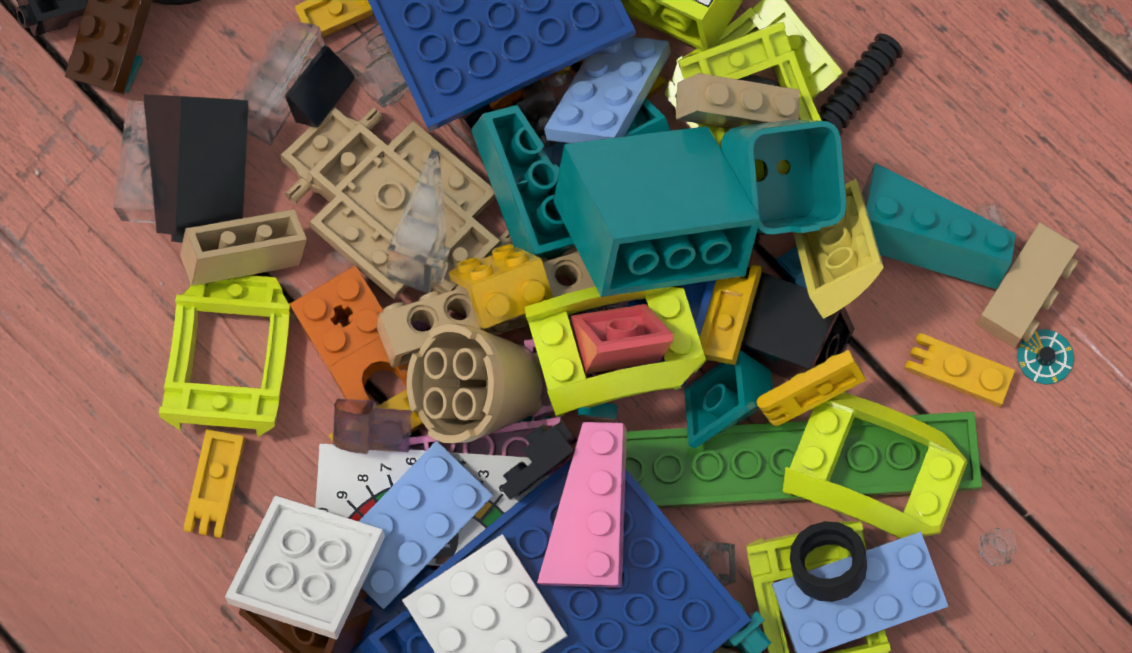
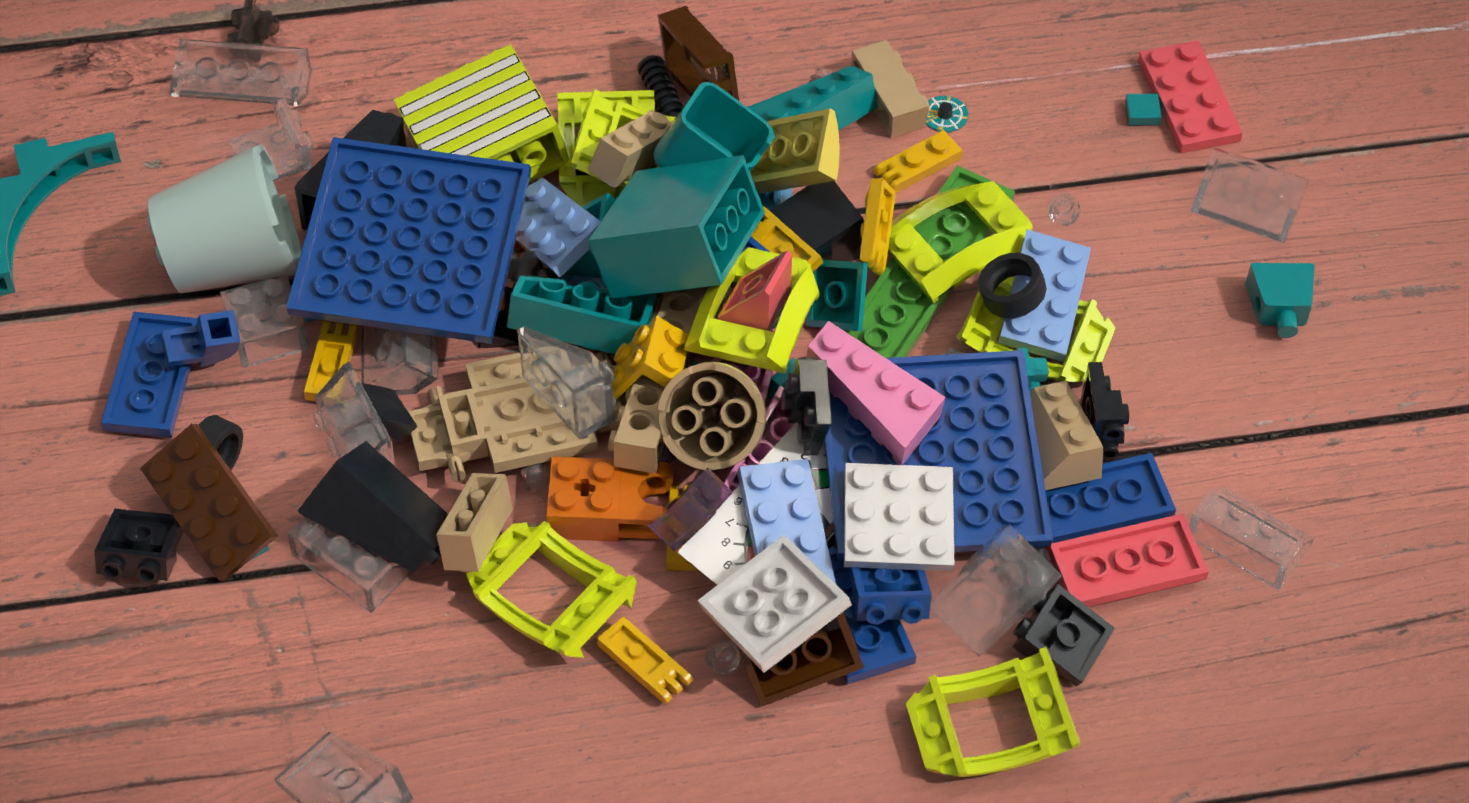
camera: 60 degrees left, 20 degrees down
(903, 90) = (694, 53): none -> reddish brown door

